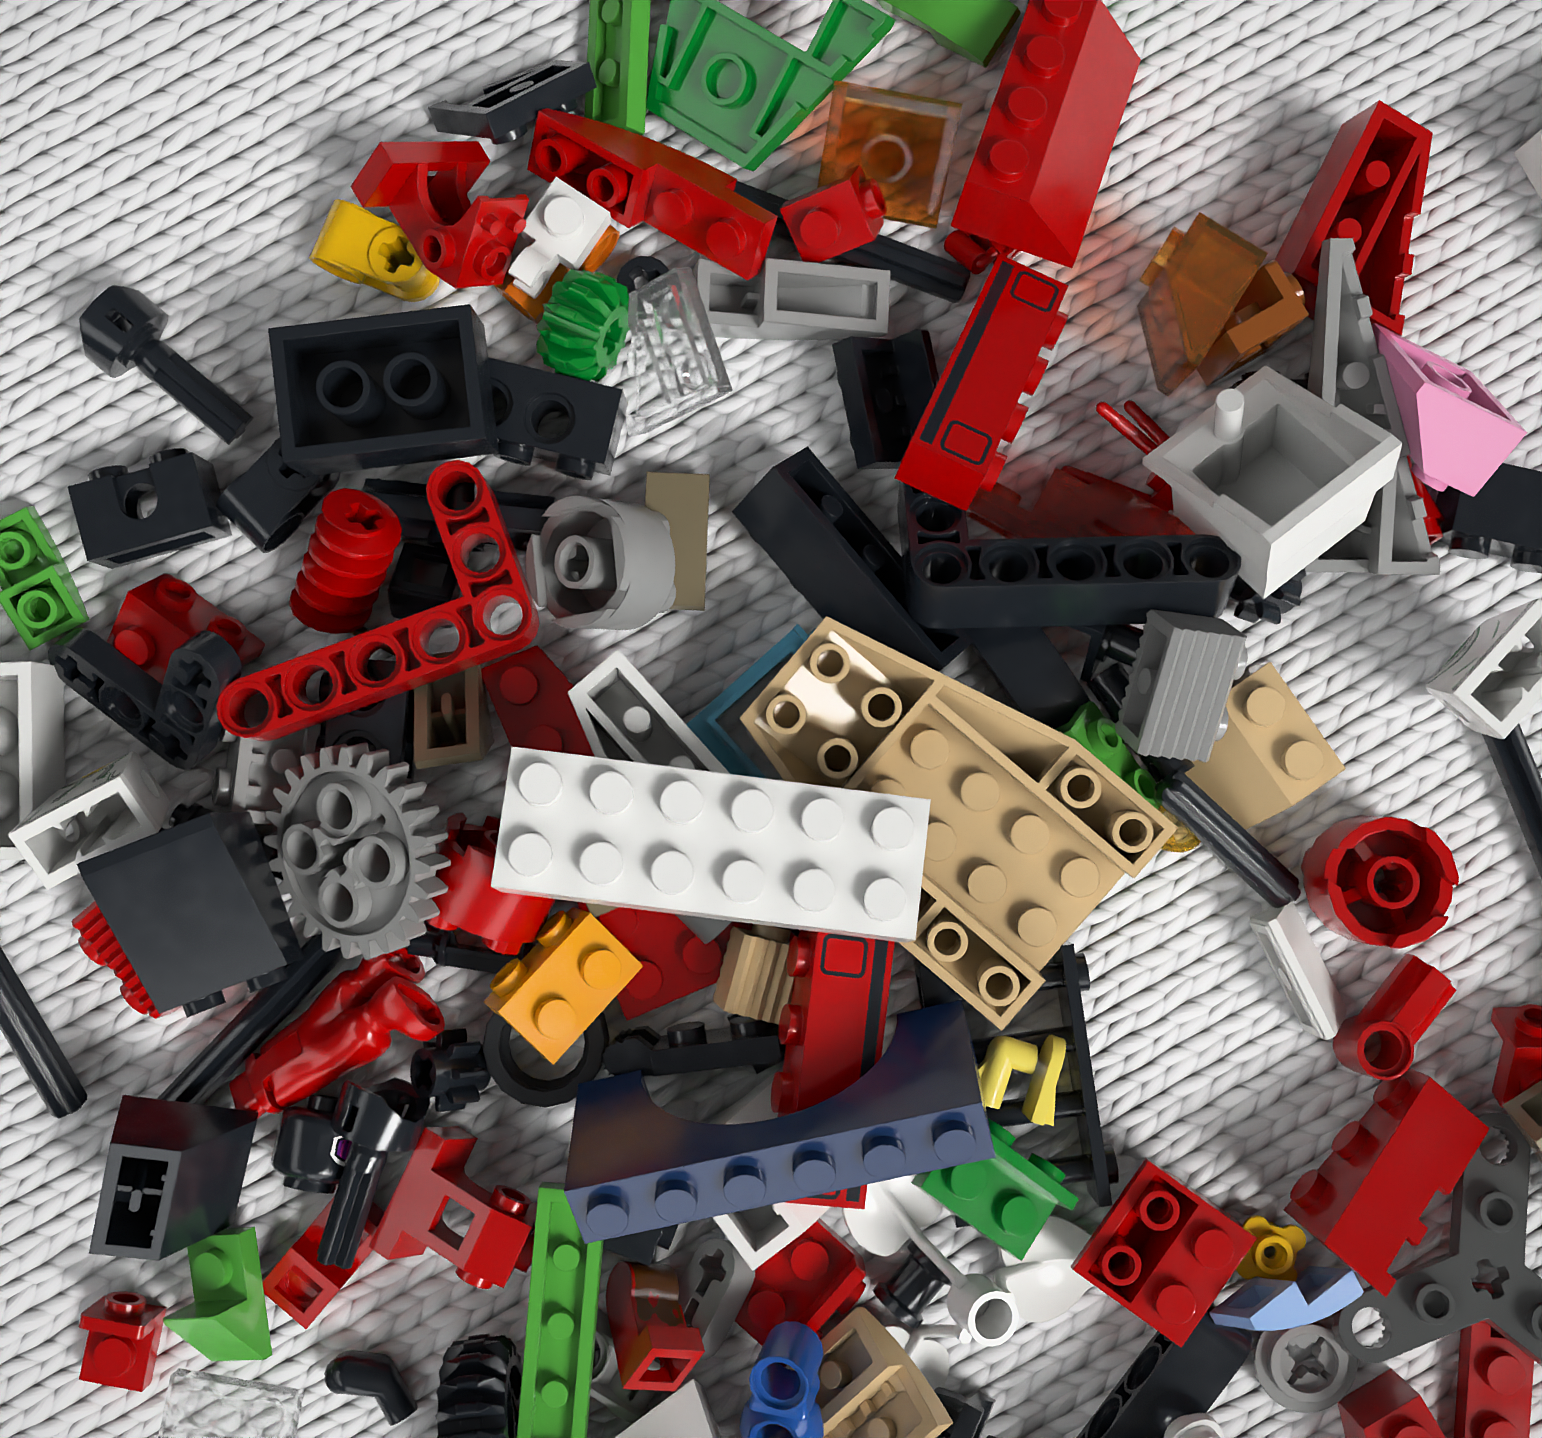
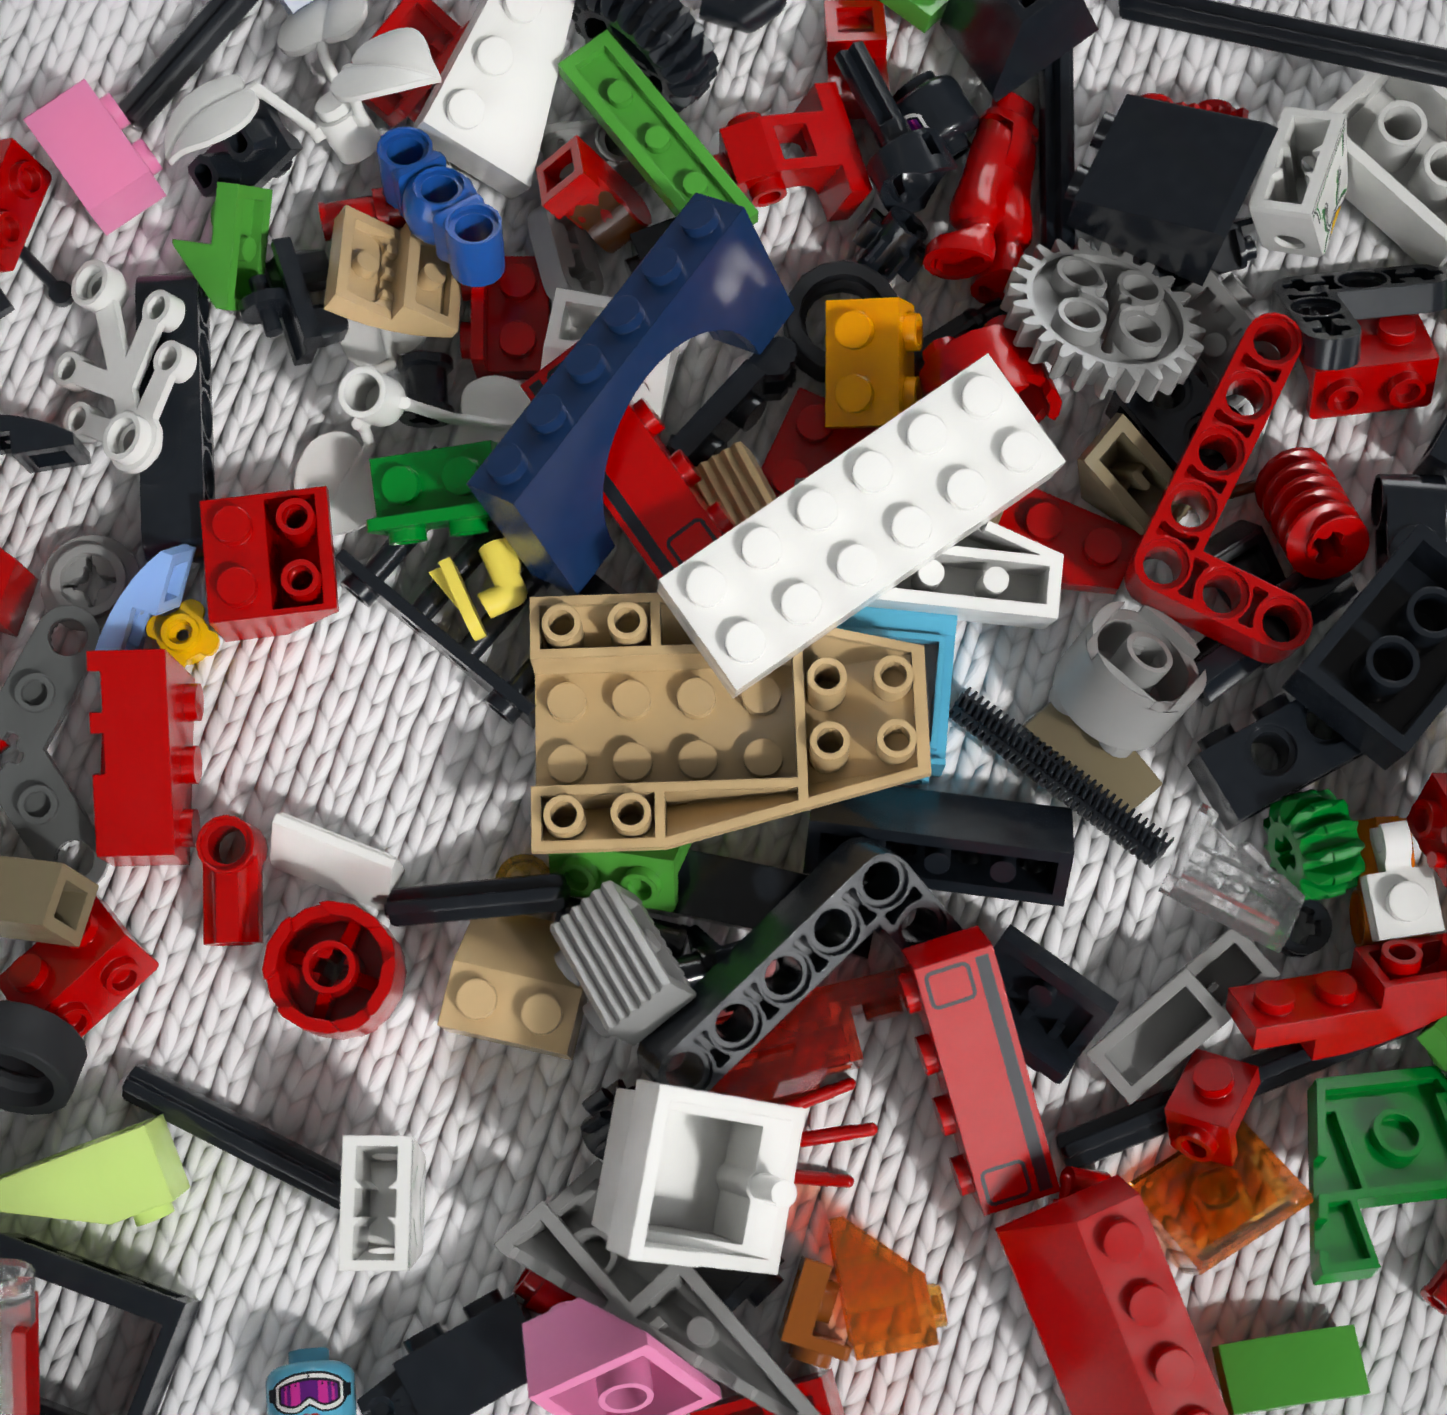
camera: 140 degrees right, 10 degrees down
(721, 546) = (1058, 779): none -> black axle

